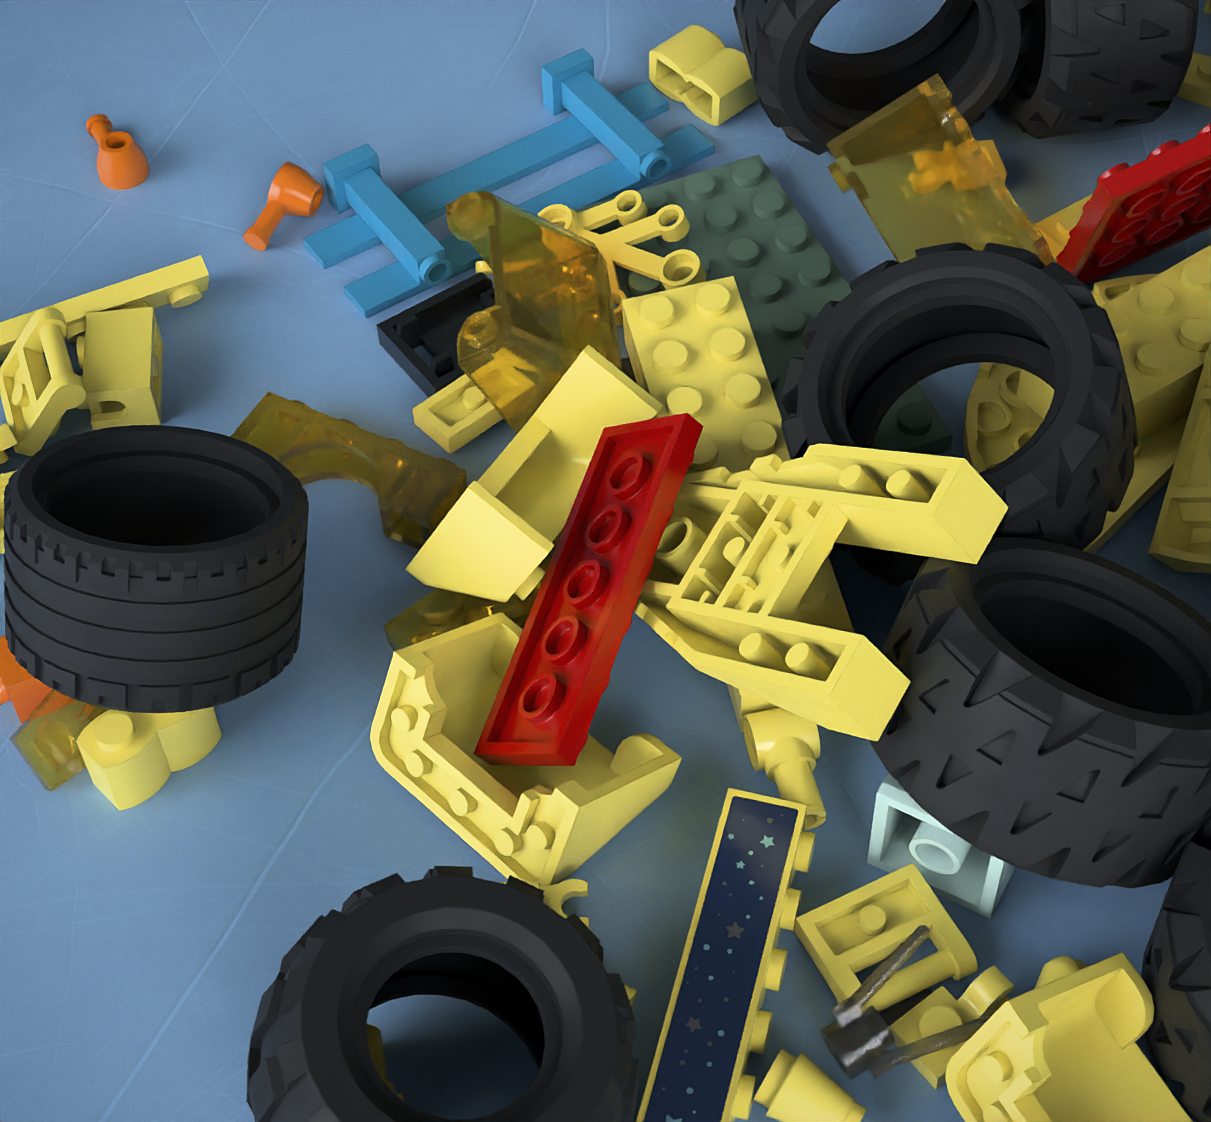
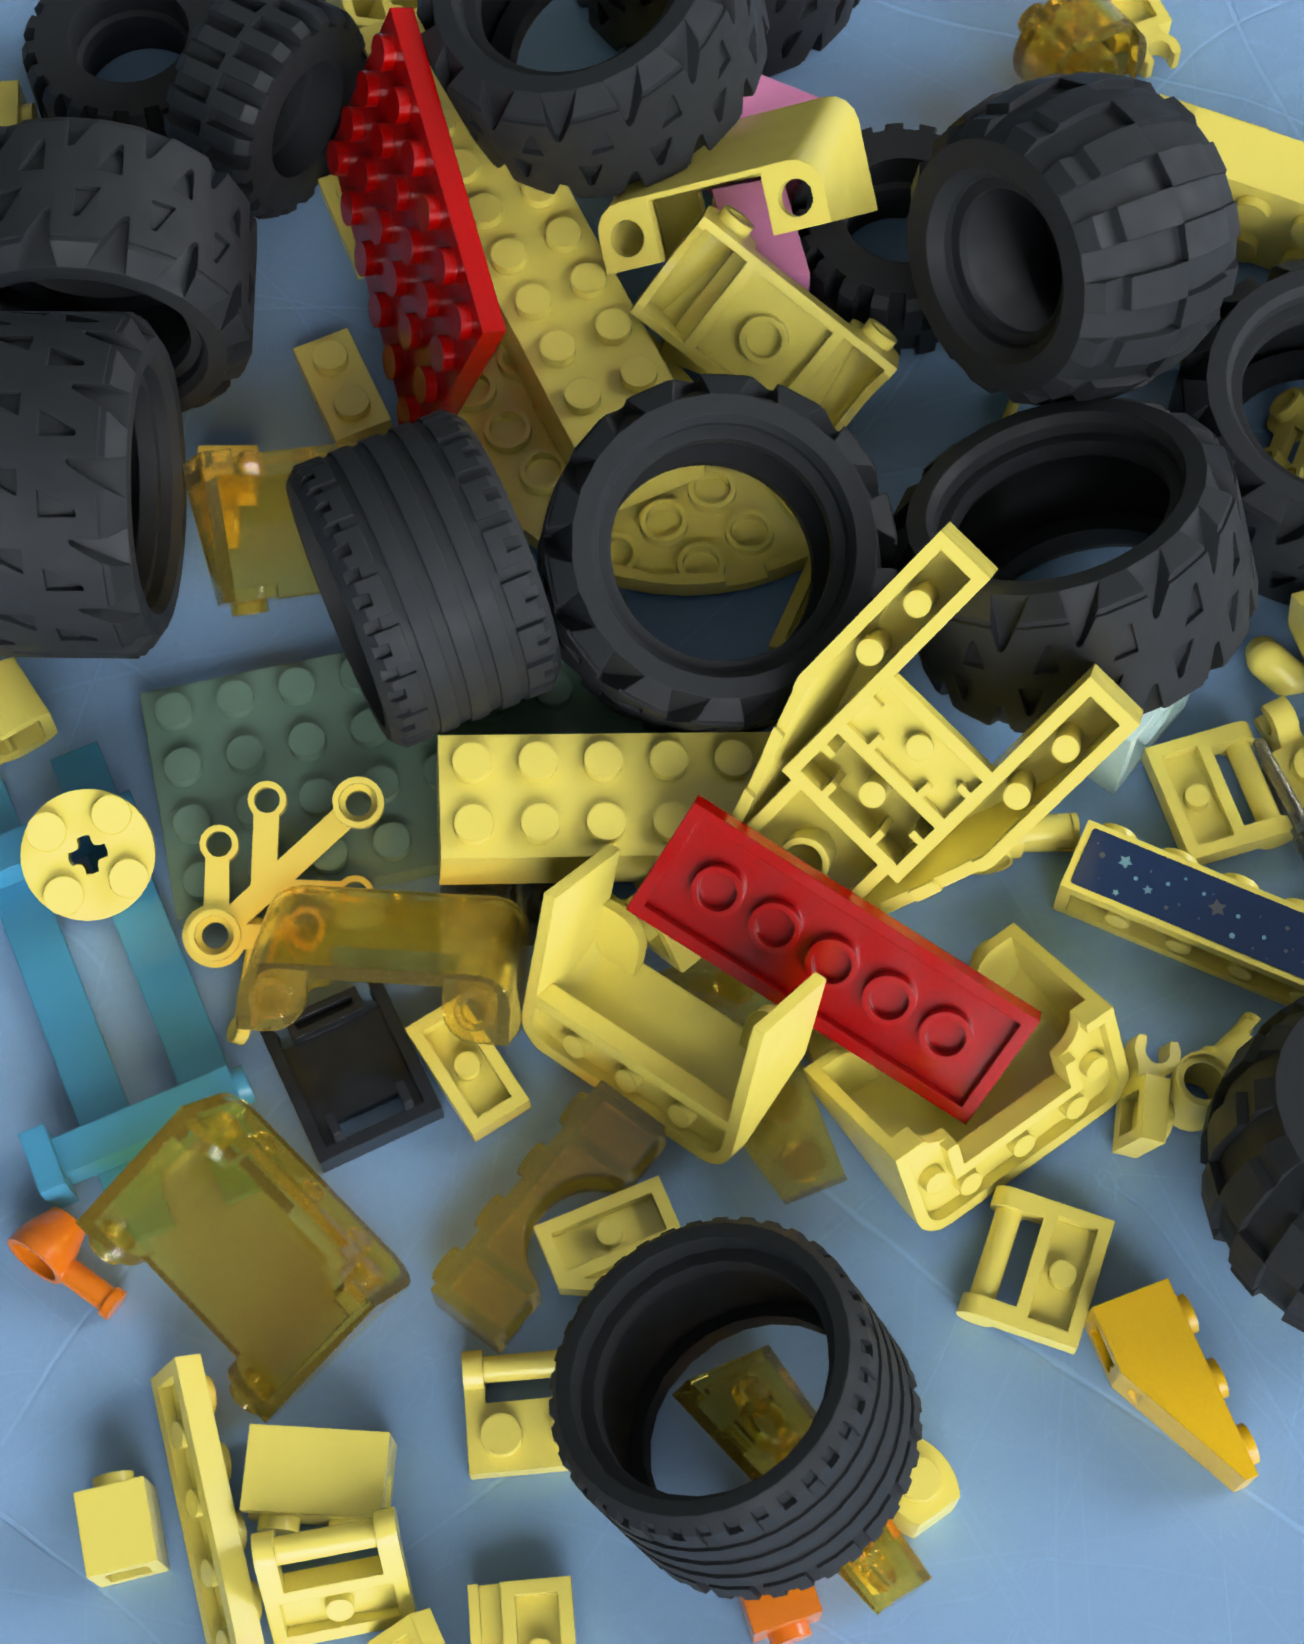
camera: 80 degrees left, 15 degrees up
(79, 262) = (120, 1529): none -> light yellow brick
(228, 959) = (1160, 1369): none -> yellow slope
(314, 294) = (248, 1246): none -> clear yellow windscreen
(335, 853) = (1058, 1276): none -> light yellow plate
(341, 527) = (597, 1235): none -> light yellow wing
(595, 127) = (70, 887): none -> light yellow brick
(851, 179) = (426, 576): none -> black tyre

